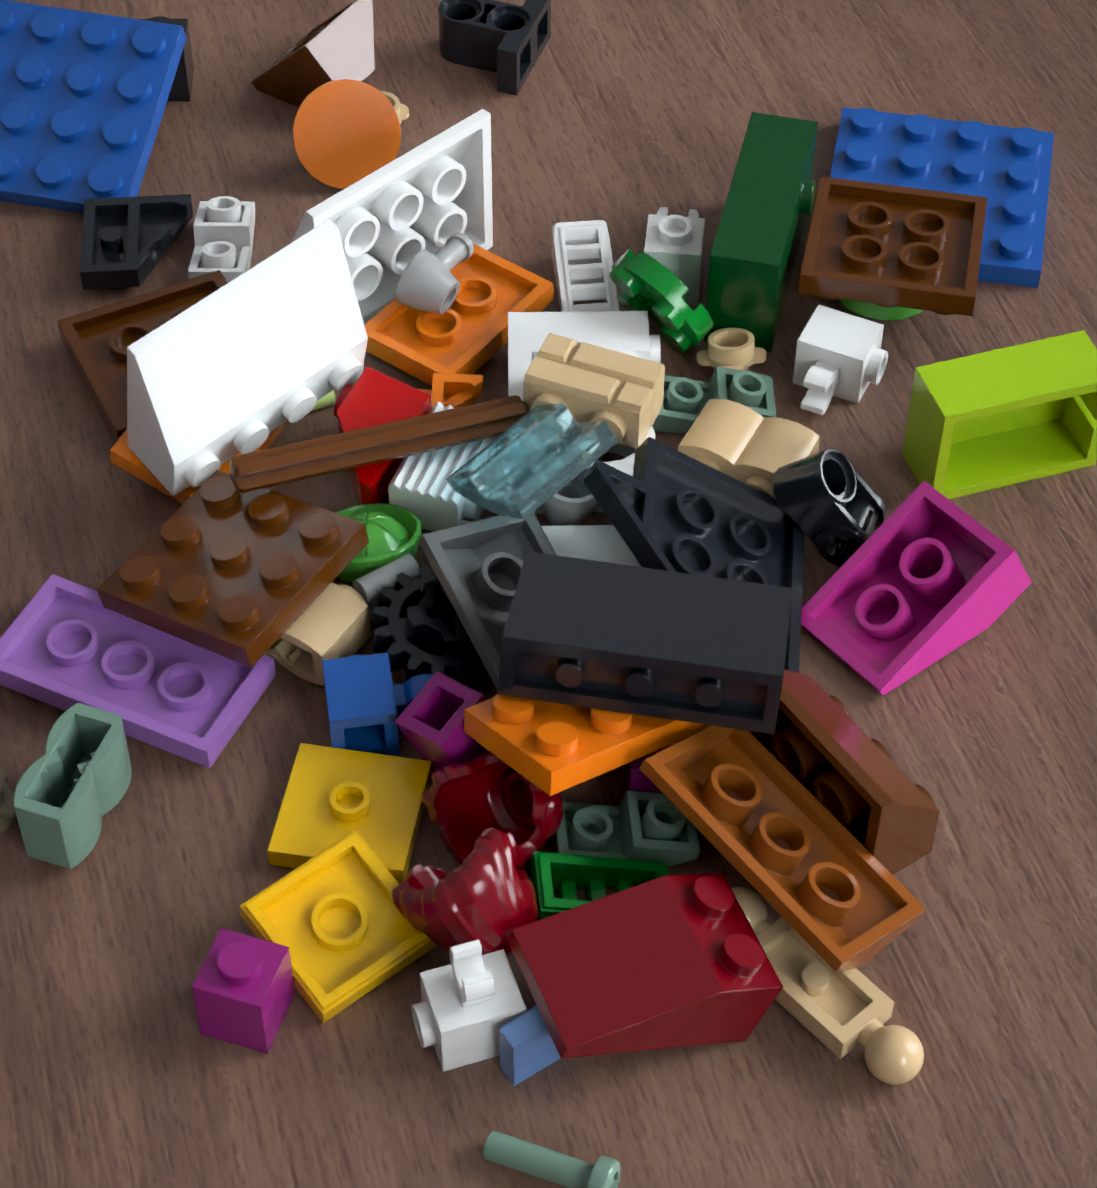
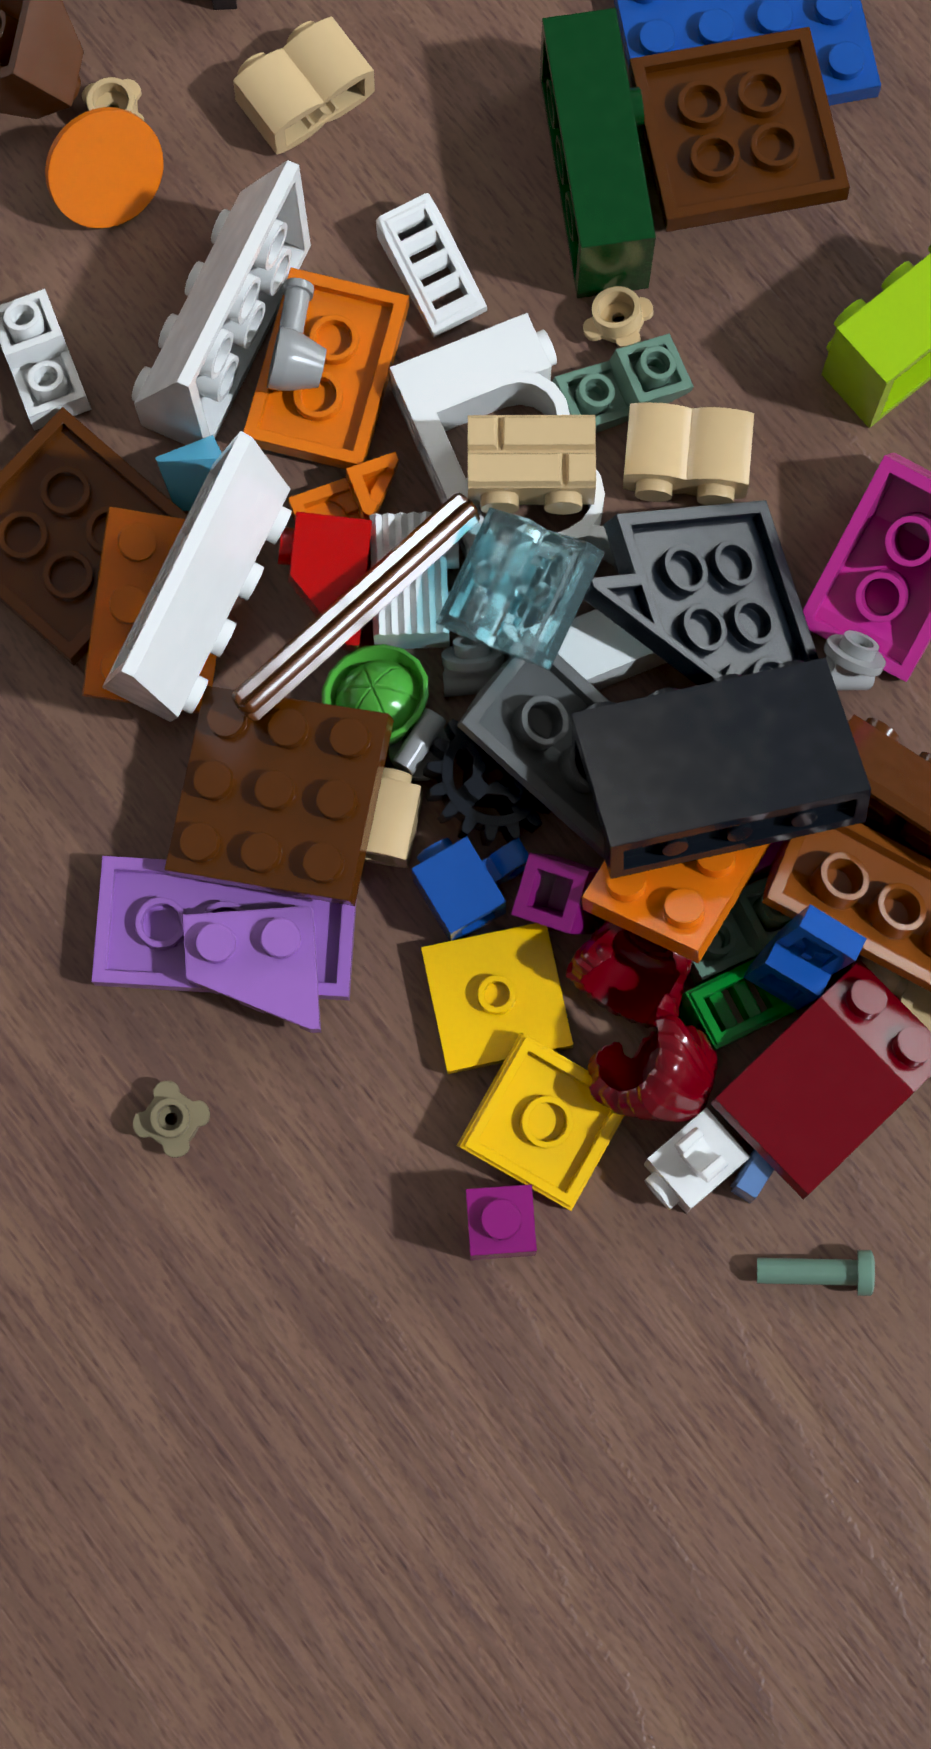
camera: 20 degrees left, 30 degrees up
(73, 785) = (255, 1065): sand green brick -> none
(144, 683) = (257, 959): none -> medium lavender wing
(544, 140) = (303, 84): none -> tan brick
(655, 289) = (544, 292): green plate -> none
(668, 835) = (804, 957): none -> blue slope
(678, 246) = (513, 209): white brick -> none
(826, 651) = (853, 660): none -> light grey plate
(829, 501) = (792, 495): black piece -> none
(838, 358) = (726, 289): white brick -> none

